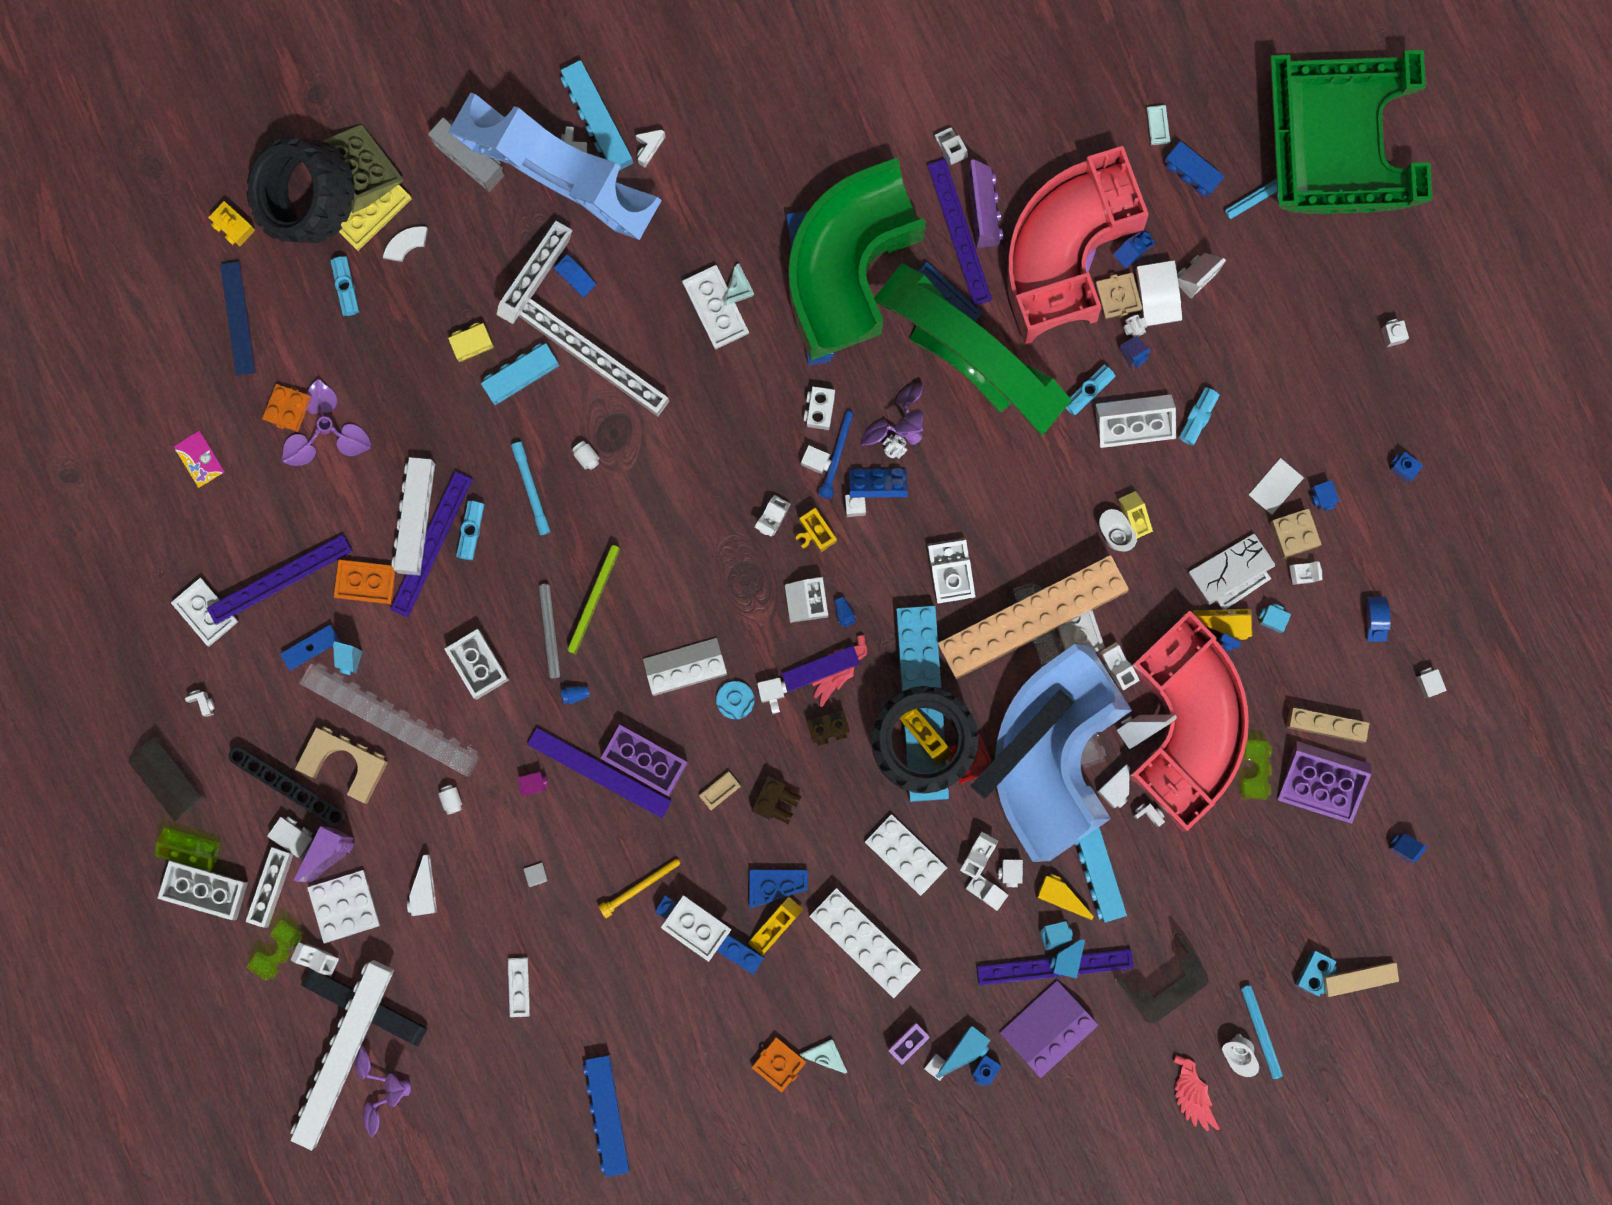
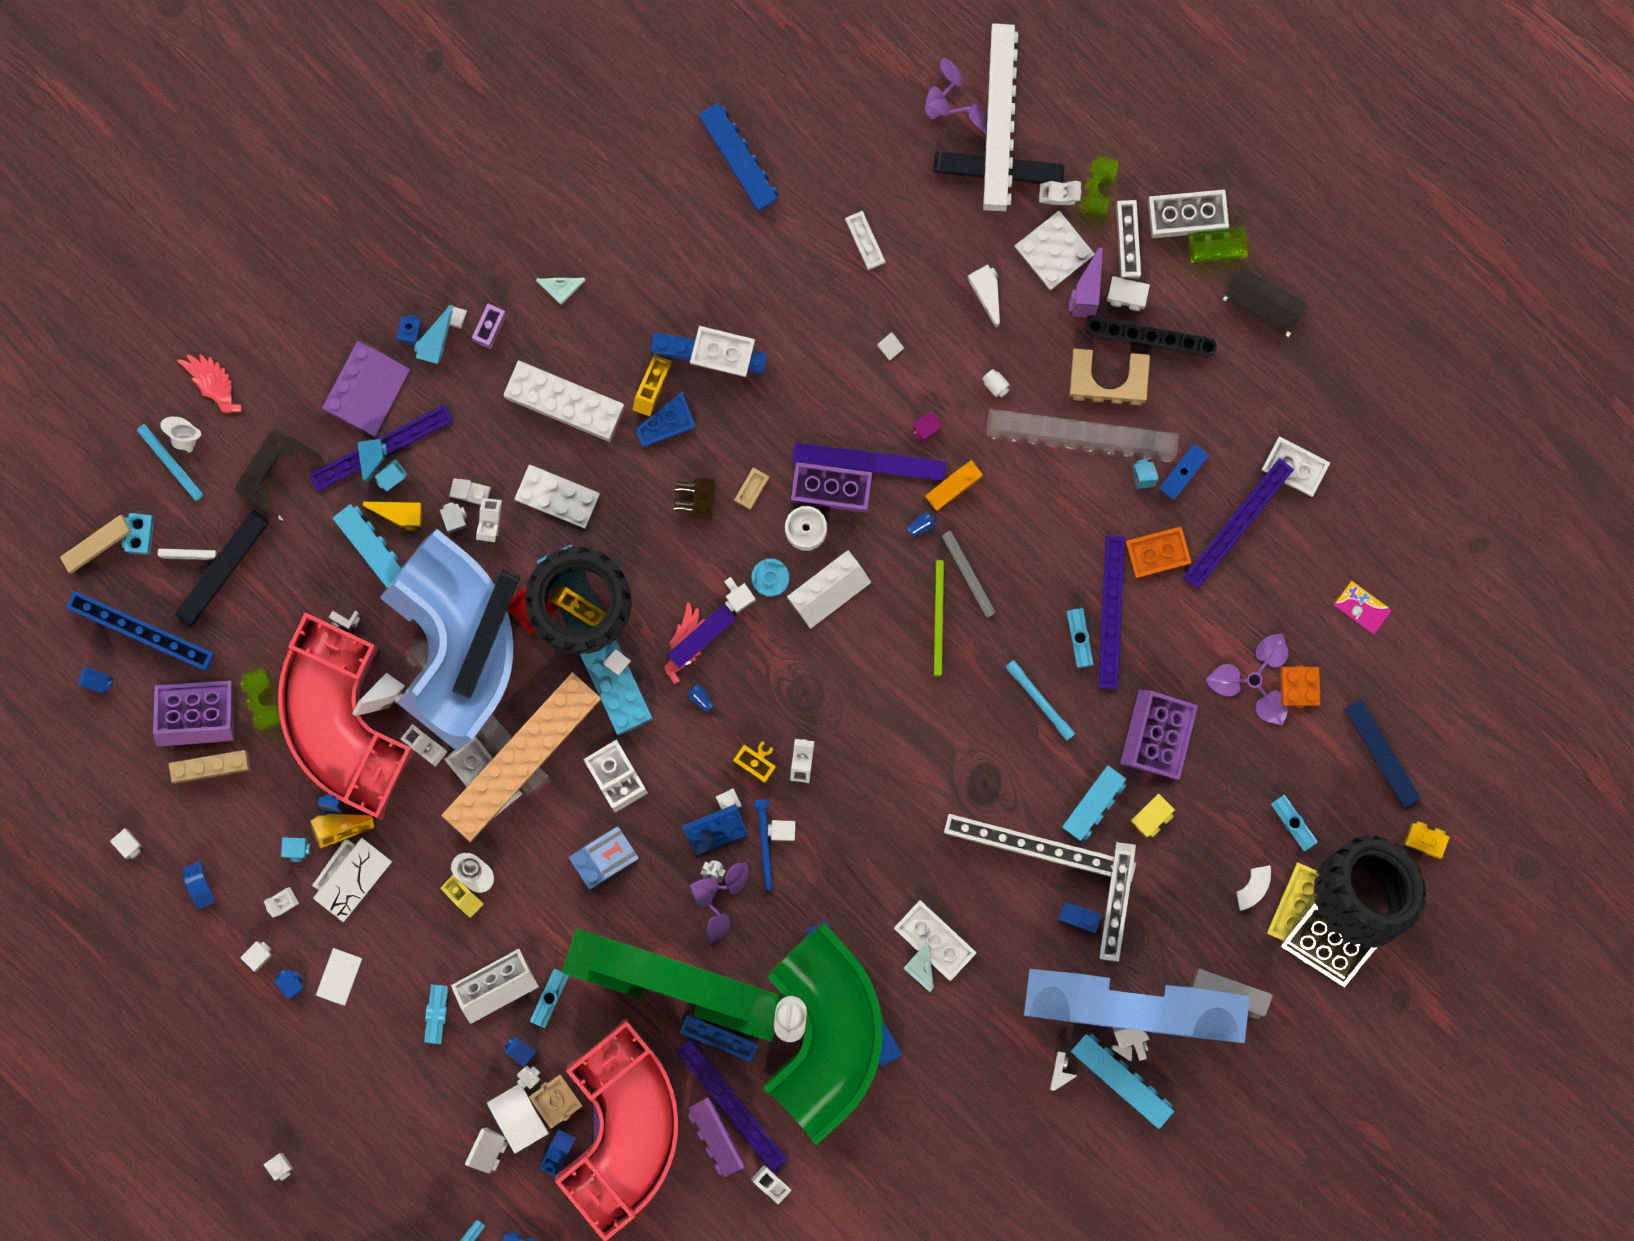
camera: 160 degrees right, 0 degrees up
(206, 704) = (1259, 383): white bracket -> none
(414, 516) = (1137, 630): white brick -> none
(434, 414) = (1159, 734): none -> medium lavender slope
(476, 664) = (1022, 515): white brick -> none
(529, 718) = (954, 485): none -> light orange slope
(583, 138) = (1126, 1052): none -> white slope
(586, 455) = (1000, 750): white brick -> none
(608, 907) = (811, 343): yellow piece -> none
(693, 725) = (809, 517): none -> white wheel
(778, 1064) = (600, 262): orange plate -> none
(806, 600) = (739, 694): white slope -> none
(824, 408) = (793, 882): white brick -> none
(828, 727) = (673, 585): dark brown brick -> none
(876, 276) = (790, 1019): none -> white piece
(910, 671) = (617, 662): none -> white slope
(991, 498) = (603, 858): none -> medium blue slope
(1117, 788) = (384, 632): white slope -> none
(1248, 910) = (222, 568): none -> black beam
(1276, 935) = (187, 554): none -> white tile
(1295, 533) = (304, 936): tan brick -> none
(1345, 533) = (257, 955): none -> white brick
(1348, 878) = (140, 631): none -> blue brick
(1405, 466) = (222, 1041): blue brick -> none

